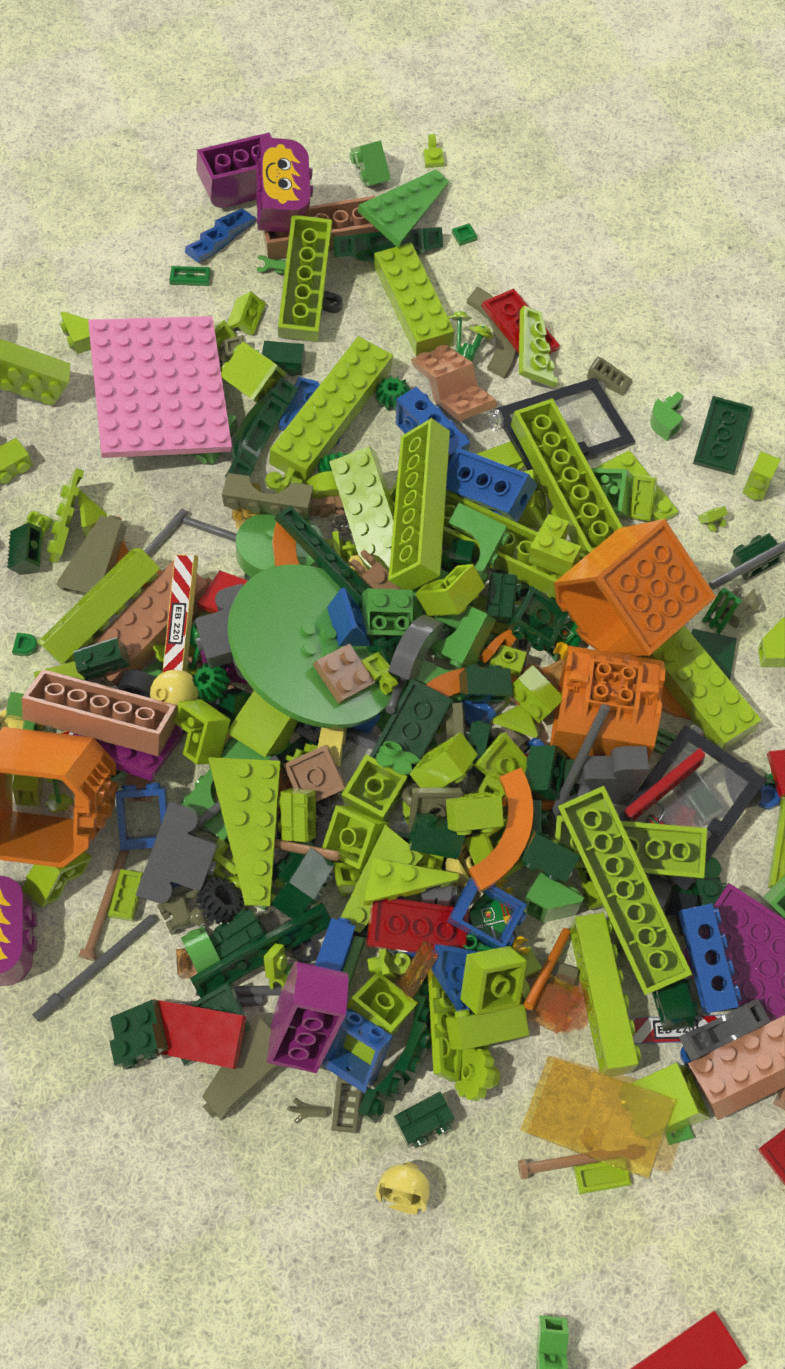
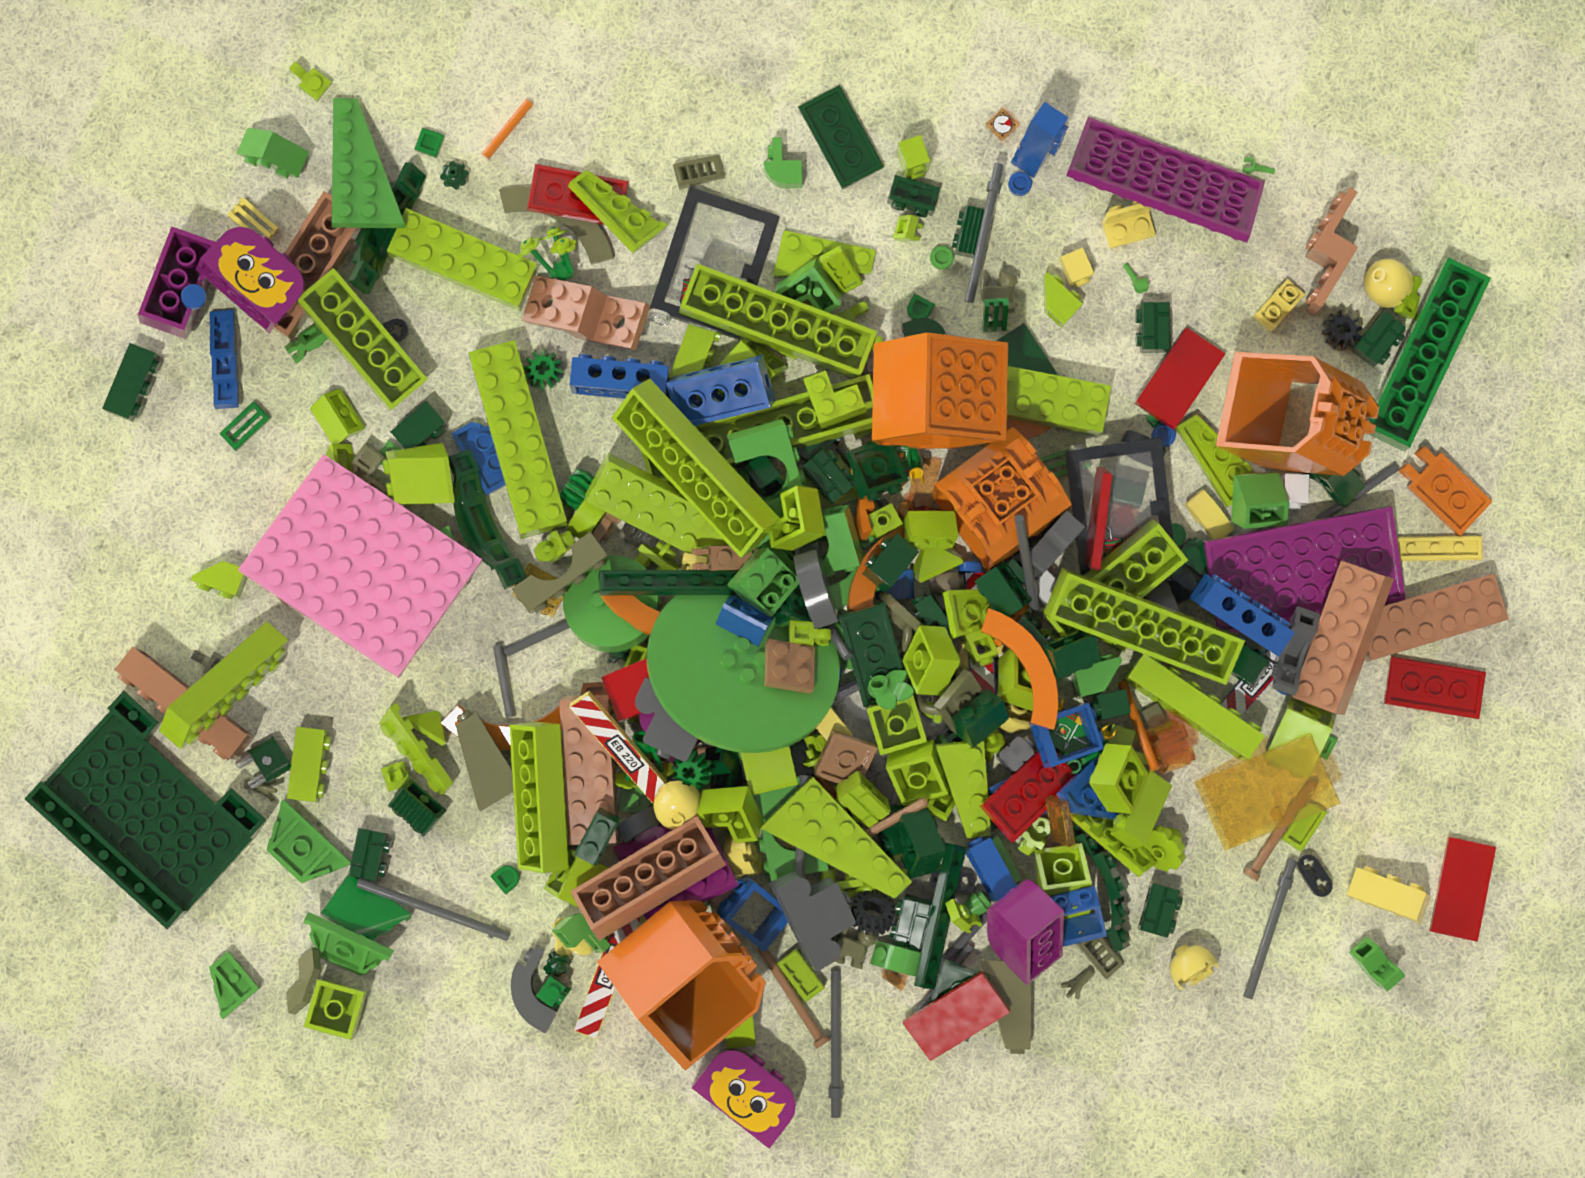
camera: 50 degrees left, 20 degrees up
(137, 1035) = (918, 1056): dark green plate -> none
(157, 201) = (132, 382): none -> dark green brick
(180, 772) = (742, 857): none -> light yellow cylinder
(237, 168) = (193, 297): none -> blue tile
(319, 178) = (238, 208): none -> light yellow tile
(397, 879) = (985, 779): lime wing -> none
(459, 258) = (454, 175): none -> dark green plant
(475, 812) = (995, 678): lime brick -> none
(518, 264) = (507, 129): none -> orange bar
(541, 930) = (1111, 705): none -> dark green brick
(542, 1205) = (1284, 884): none -> dark grey bar
(579, 1224) = (1309, 878): none -> black beam
(619, 1303) = (1389, 894): none -> light yellow wedge
(719, 554) = (941, 257): none -> bright green tile
(737, 502) = (913, 196): none -> dark green bracket
(749, 875) = (1209, 515): none -> light yellow slope

